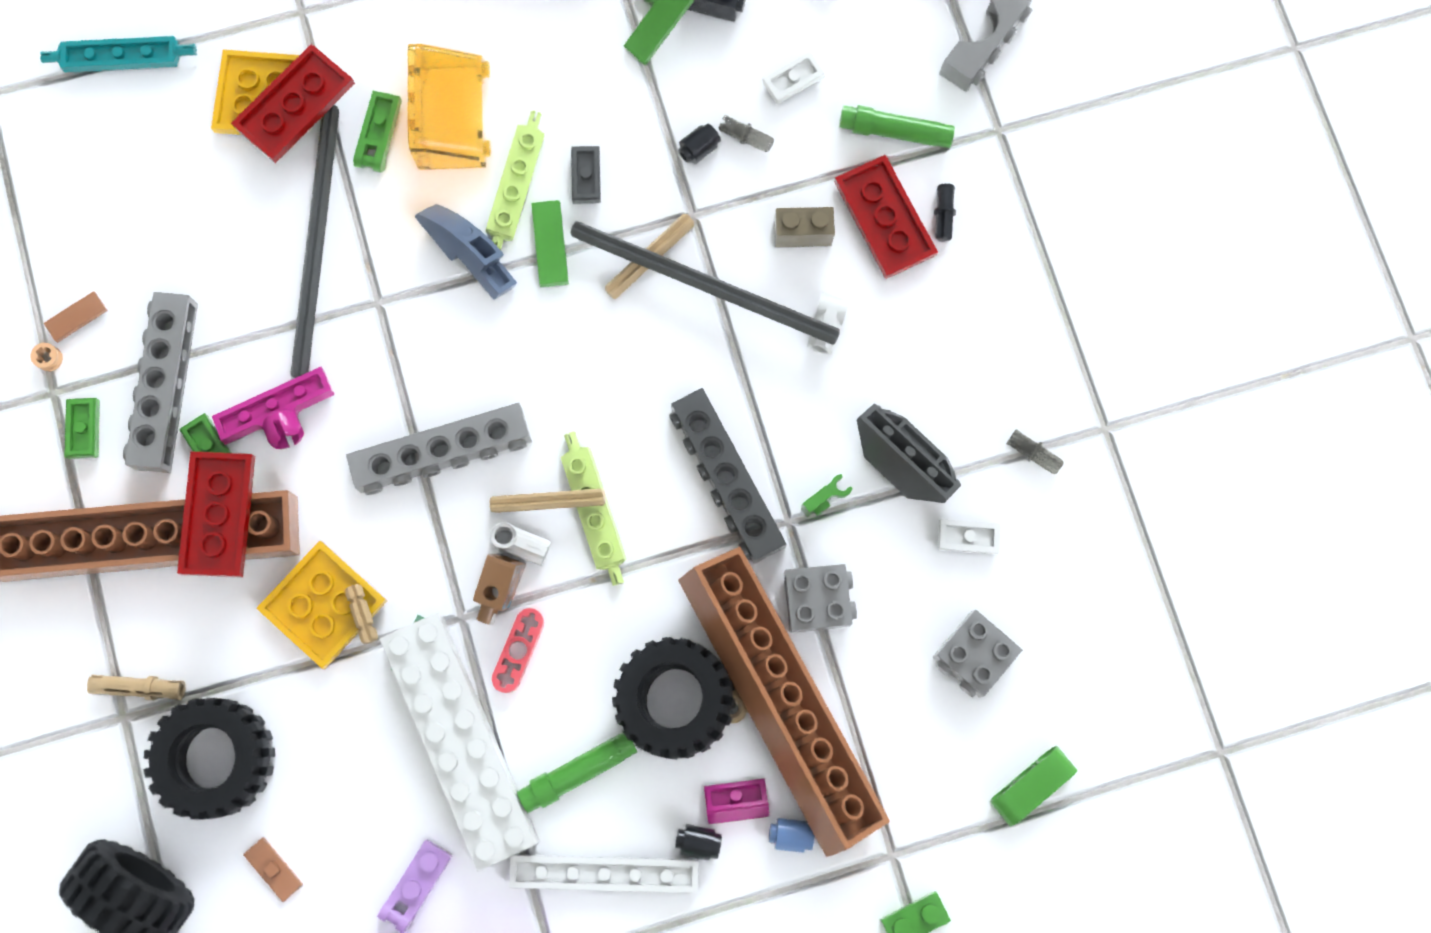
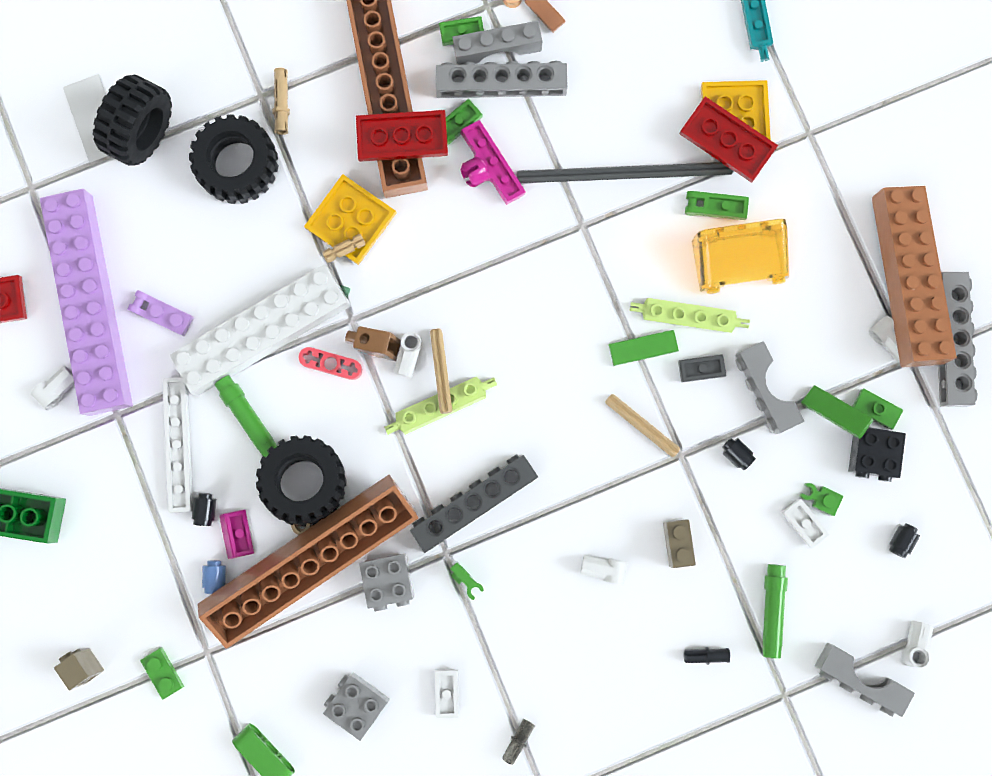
camera: 90 degrees right, 5 degrees up
(106, 353) = (517, 38): none -> light grey arch
(273, 869) = (165, 214): nougat piece -> none
(364, 462) = (455, 234): light grey brick -> none
(465, 241) = (633, 285): sand blue slope -> none
(590, 110) = (780, 414): none -> light grey arch
(705, 282) = (622, 471): dark grey axle -> none
(746, 133) = (752, 491): clear smoke axle -> none
(765, 53) = (824, 499): none -> bright green plate
(885, 216) = (697, 608): red plate -> none
(906, 456) = (502, 640): dark grey wedge -> none

